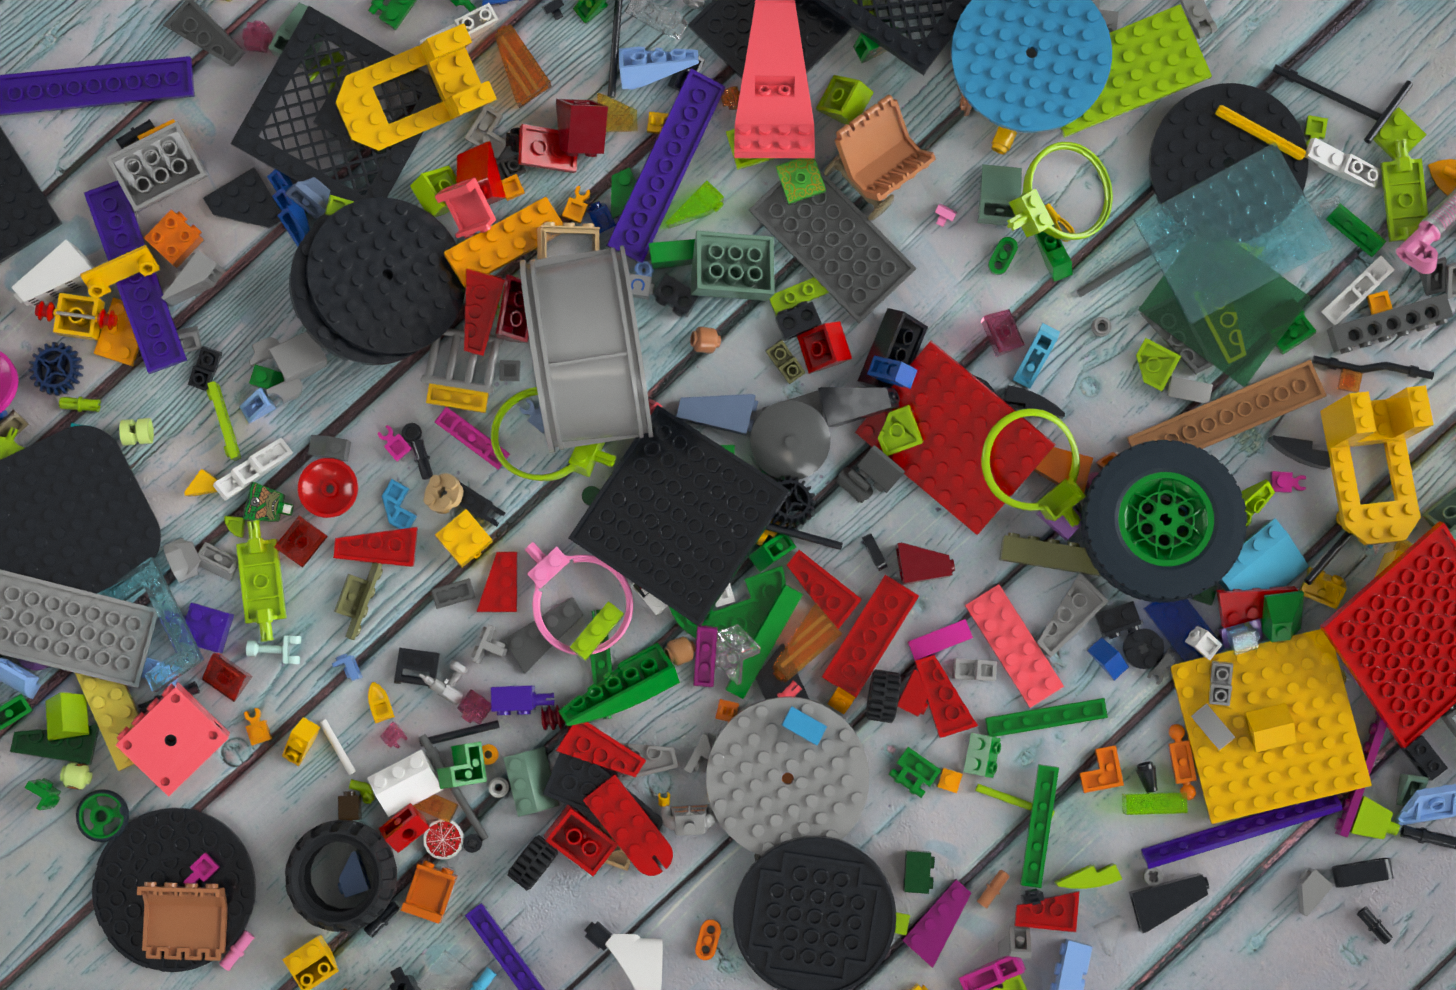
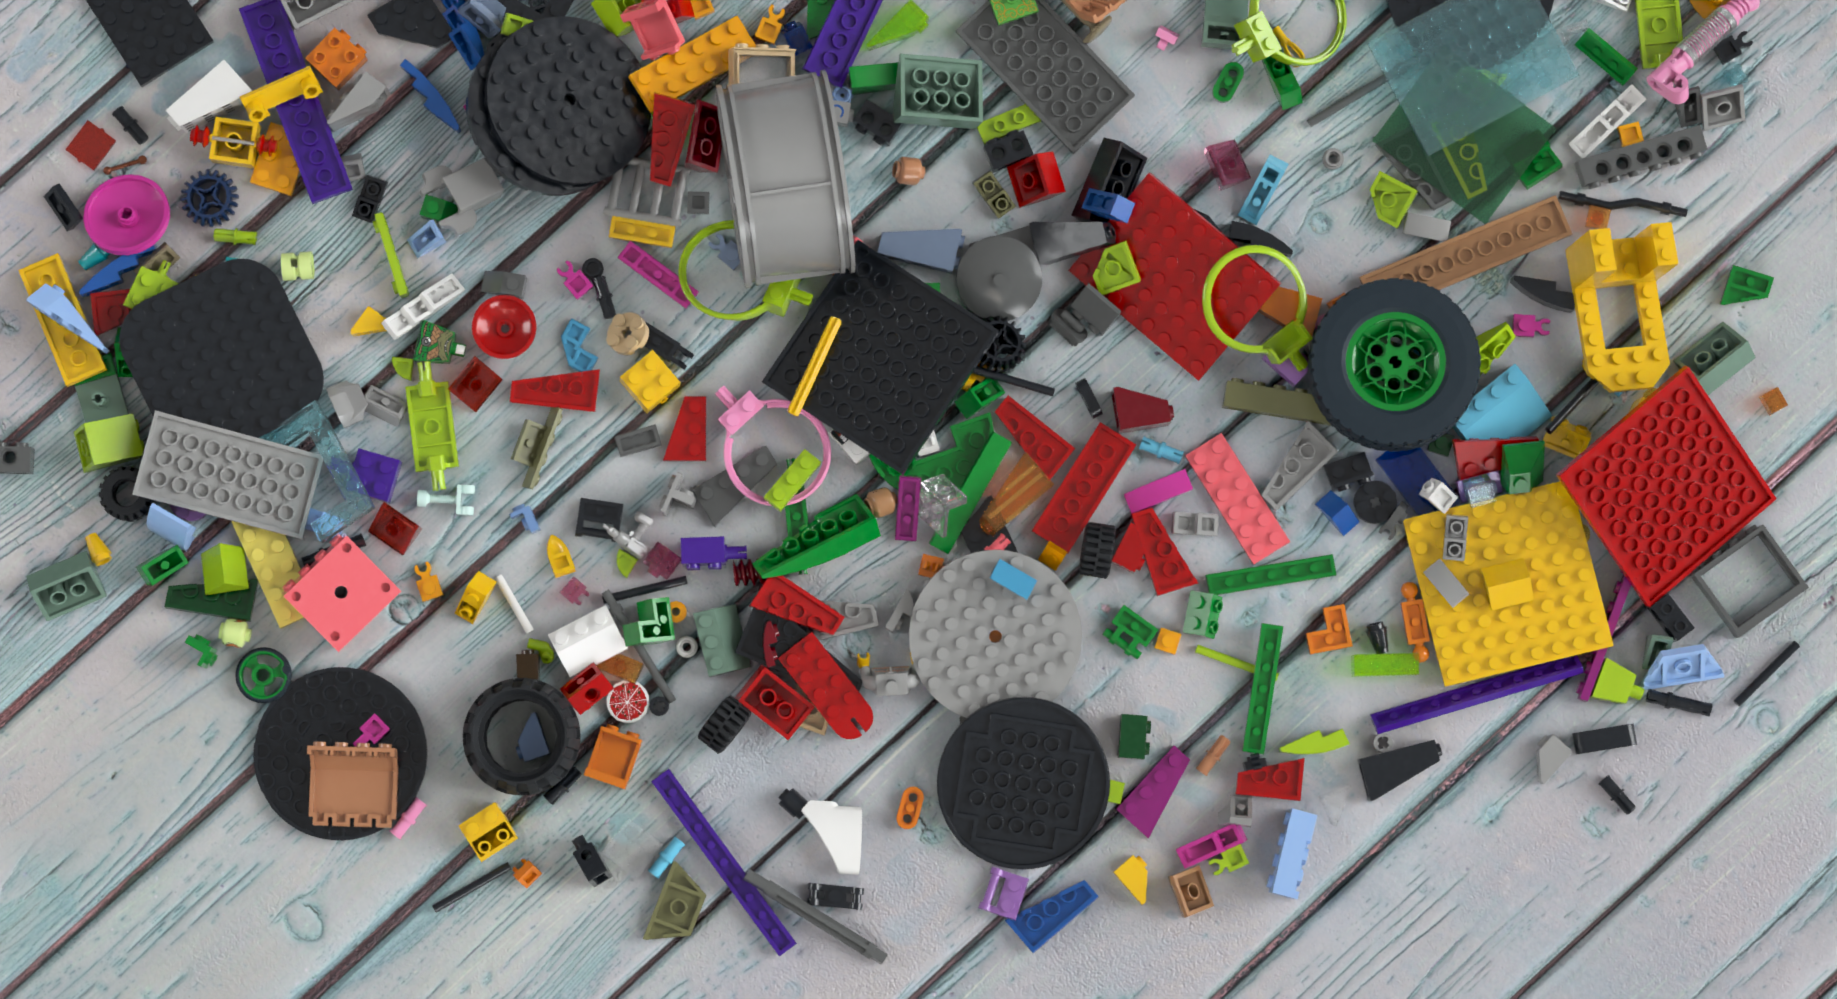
camera: 10 degrees left, 0 degrees up
(265, 277) = (434, 101): none -> blue slope
(441, 708) = (625, 562): none -> lime tile
(575, 778) = (769, 637): none -> dark red slope
(589, 494) = (784, 335): dark green tile -> none
(616, 524) = (814, 366): none -> yellow axle
(942, 600) = (1161, 450): none -> medium azure pin

